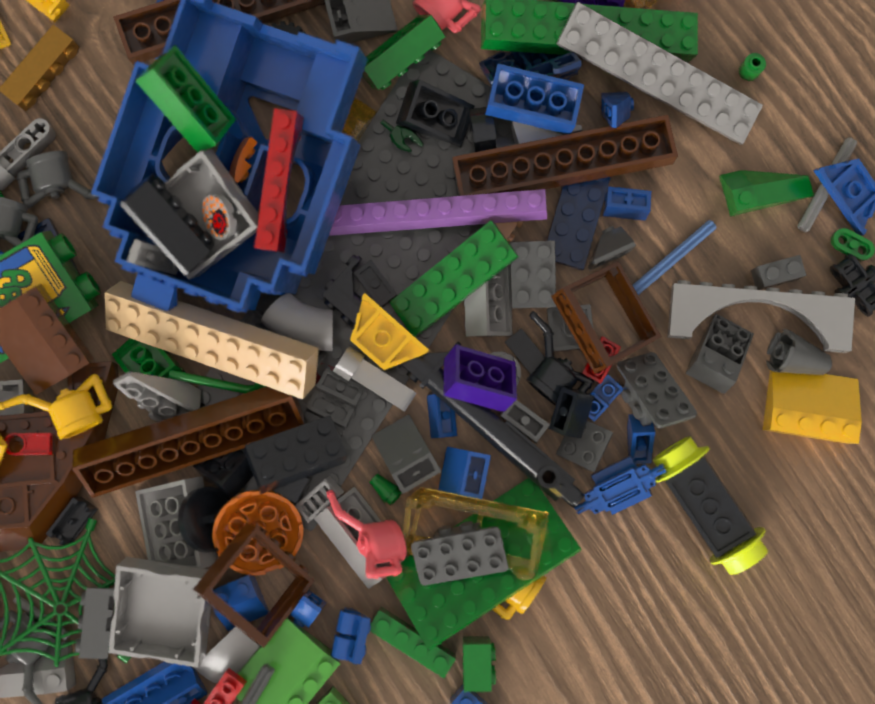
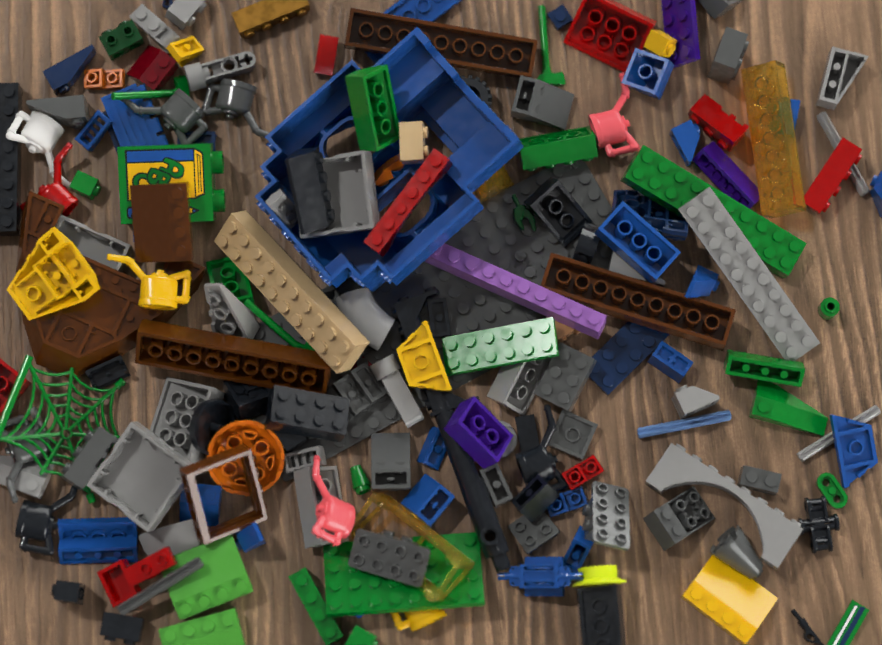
camera: 25 degrees right, 5 degrees down
(33, 443) = (116, 299): red piece -> none
(116, 78) = (326, 54): none -> red slope
(154, 293) = (268, 234): blue slope -> none
(218, 216) = (348, 204): tile -> none
(249, 116) = (412, 142): none -> tan brick
(352, 636) = (274, 575): blue plate -> none
(583, 330) = (577, 438): reddish brown window -> none
(611, 246) = (638, 388): dark grey slope -> none
(669, 231) = (692, 400): none -> light grey slope
(723, 159) = (764, 368): none -> green brick

